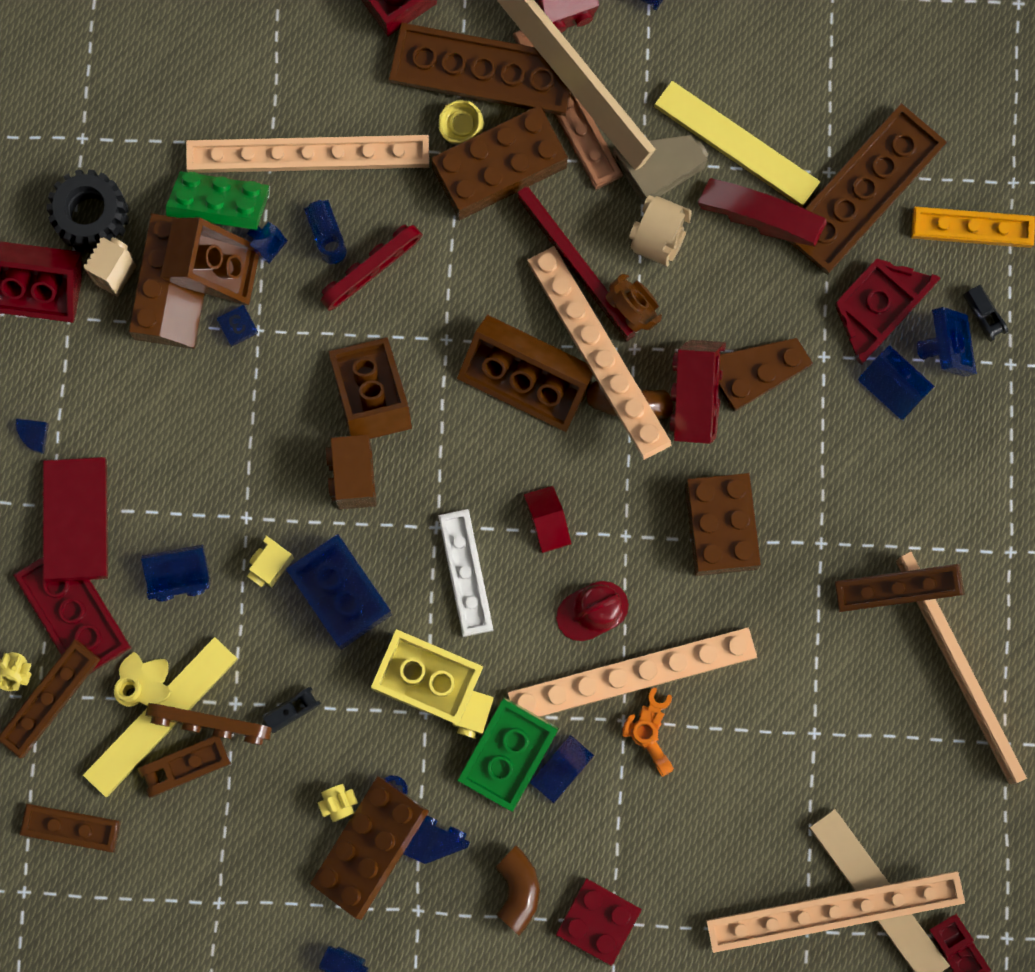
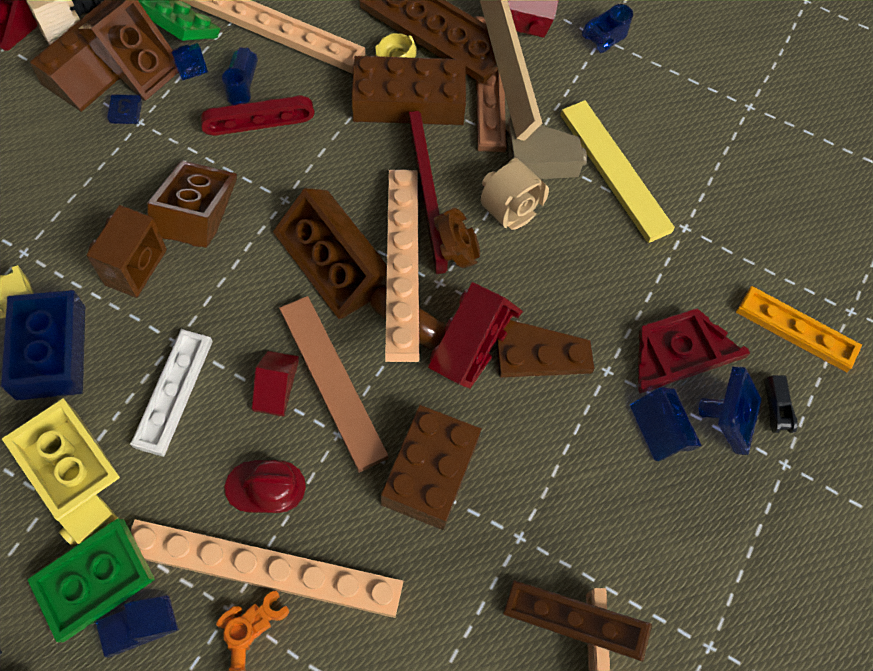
camera: 25 degrees right, 15 degrees down
(595, 492) = (334, 384): none -> nougat tile
(763, 211) = (616, 227): dark red slope -> none
(870, 185) = (710, 251): reddish brown plate -> none

